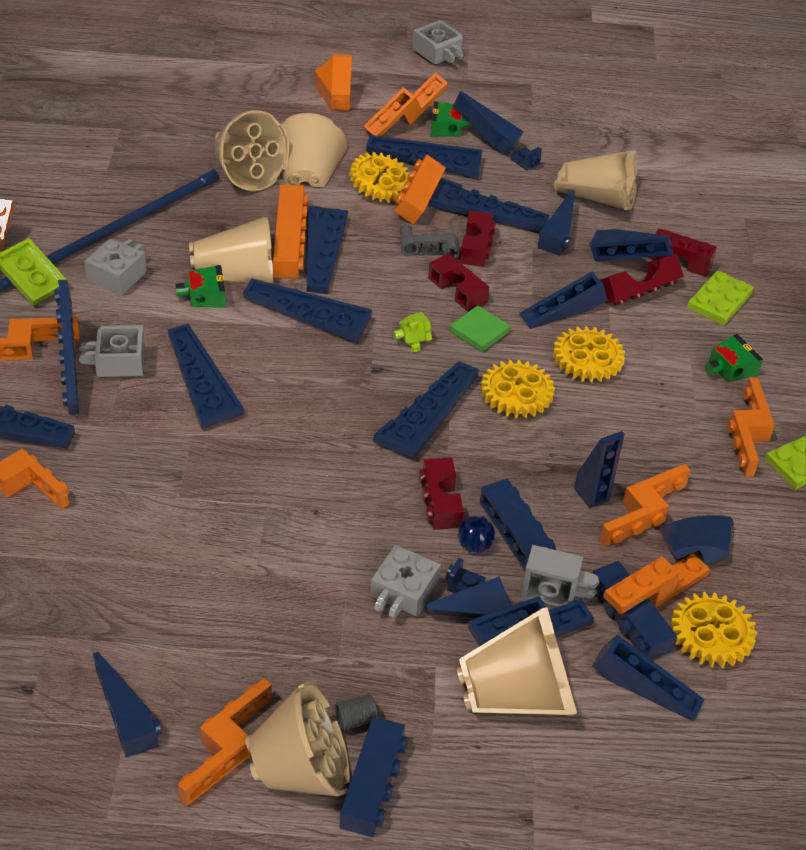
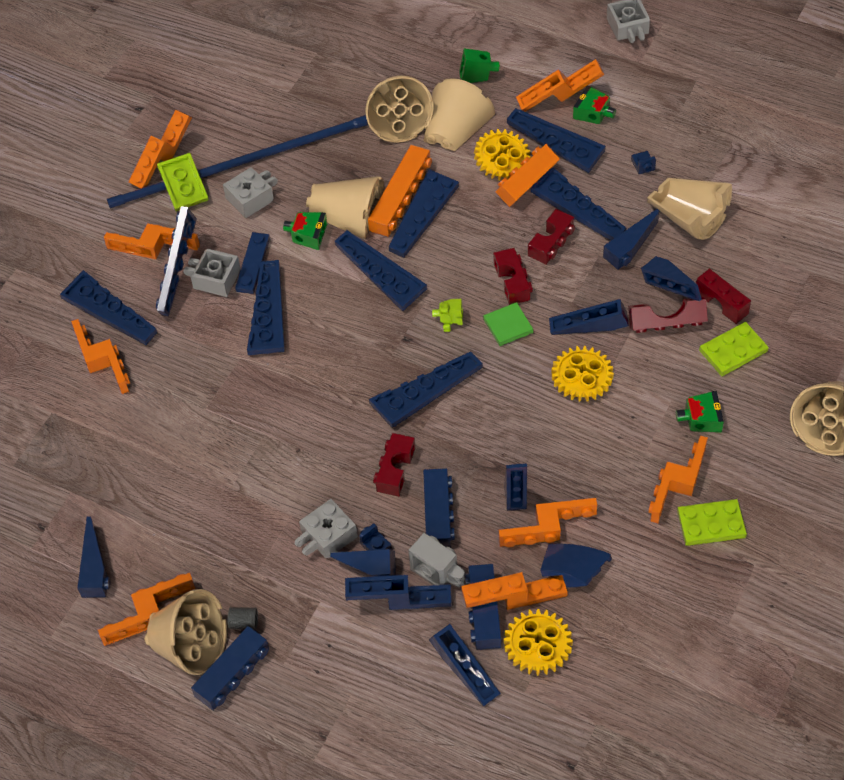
camera: 30 degrees right, 10 degrees up
(156, 335) = (250, 268): none -> dark blue plate
(308, 101) = (476, 66): none -> green torso
(334, 81) = (515, 45): orange slope -> none
(440, 243) = (519, 235): dark grey beam -> none
(476, 534) = (401, 507): clear blue piece -> none
(490, 125) = (627, 129): dark blue slope -> none
(517, 388) = (505, 389): yellow gear -> none
(518, 672) = (370, 629): tan cone -> none

